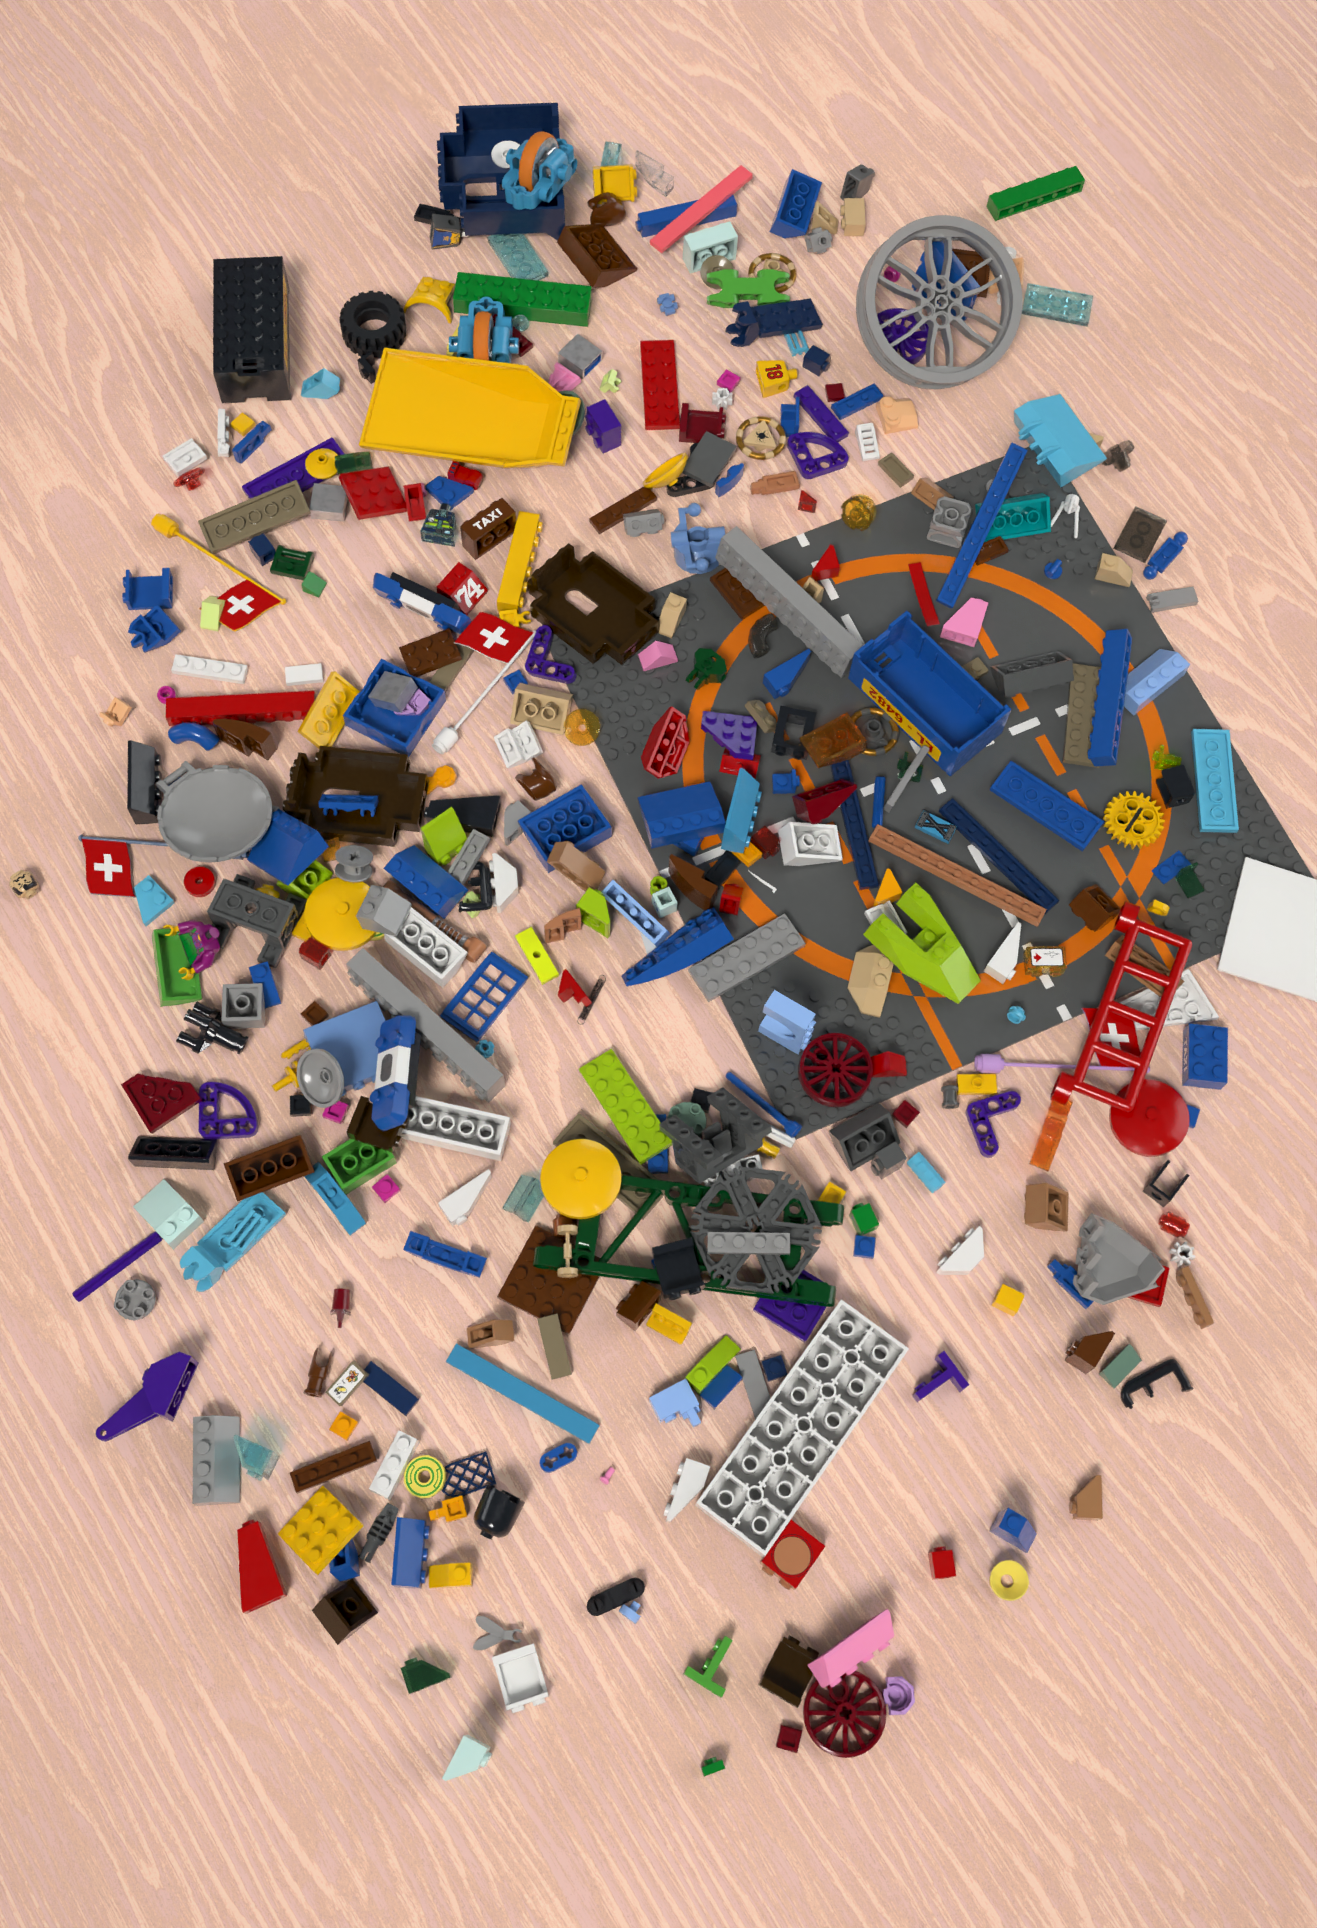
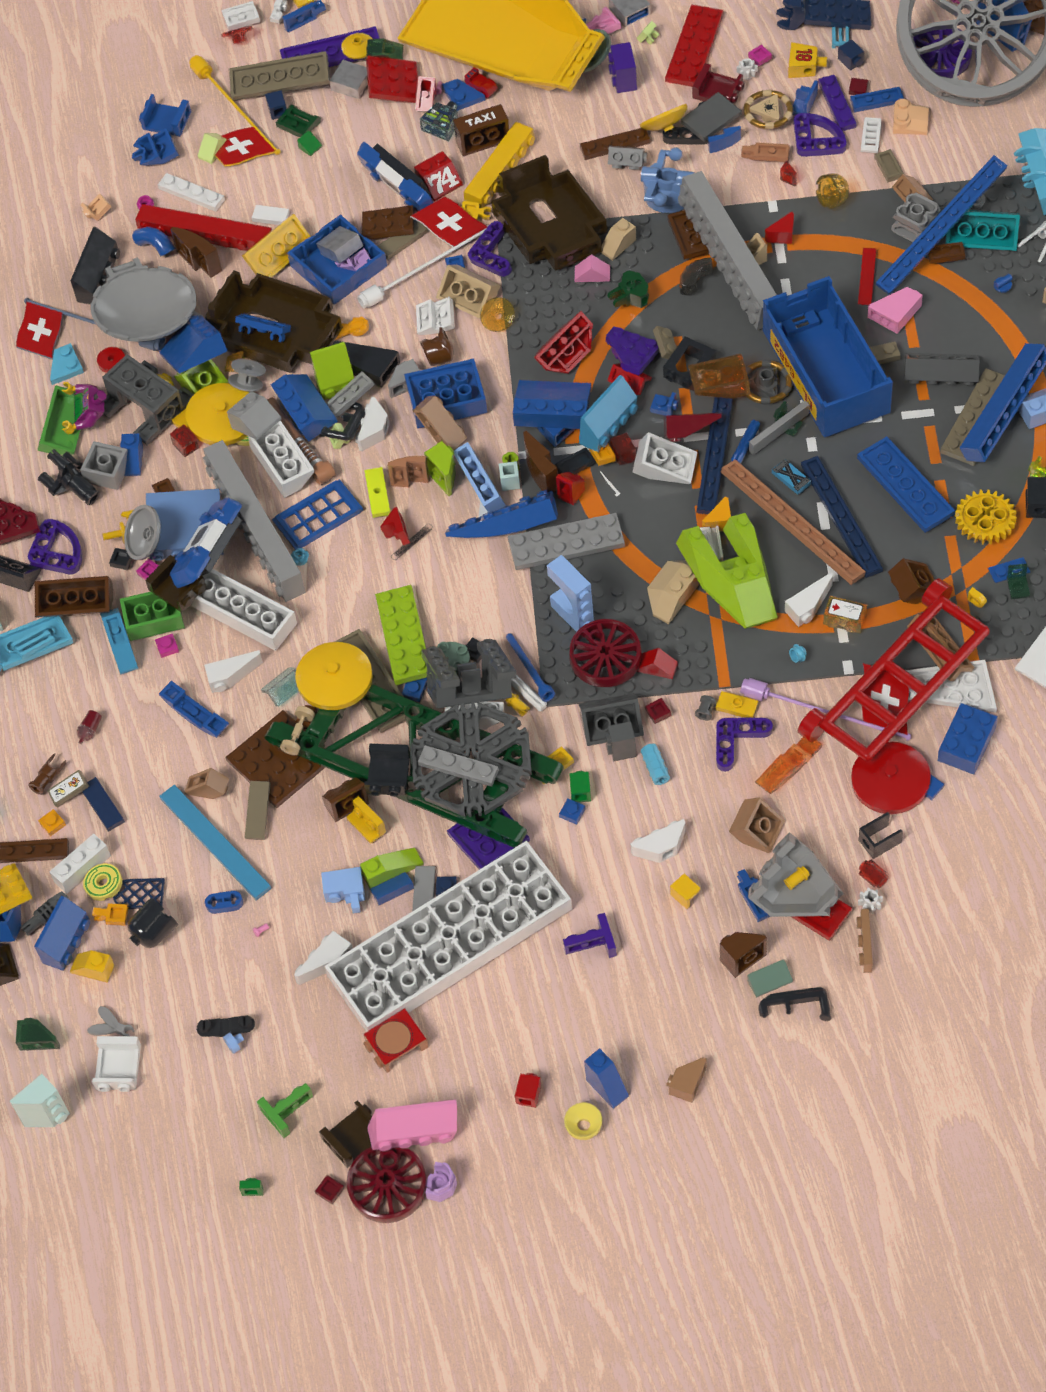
camera: 30 degrees right, 10 degrees down
(782, 678) = (704, 313): blue slope -> none
(1110, 1255) = (797, 877): none -> yellow pin

